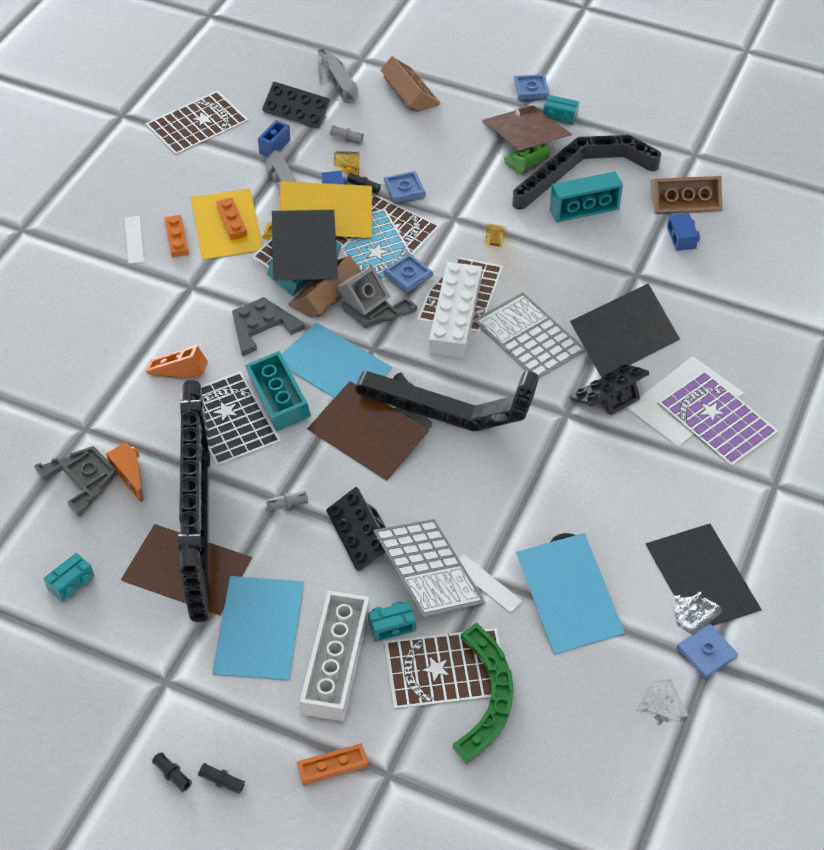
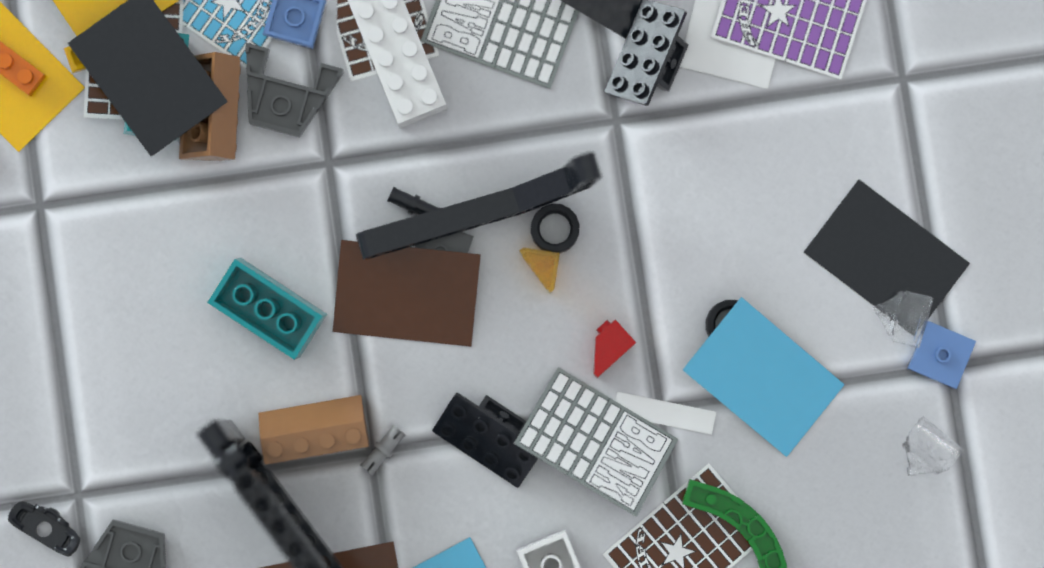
camera: 35 degrees left, 35 degrees up
(45, 421) = (27, 518): none -> black piece
(127, 466) = (173, 521): orange slope -> none
(182, 363) = (119, 341): orange slope -> none
(234, 419) = (228, 369): sticker -> none
(251, 469) = (313, 429): none -> medium nougat slope
(258, 317) = (158, 205): dark grey wing -> none
(330, 360) = (294, 214): medium azure sticker -> none
(364, 291) = (268, 94): light grey slope -> none
(391, 621) = (598, 532): teal brick -> none
(466, 457) = (543, 264): none -> clear yellow slope
(476, 522) = (610, 346): none -> red slope
(487, 455) = (555, 209): none -> black tyre

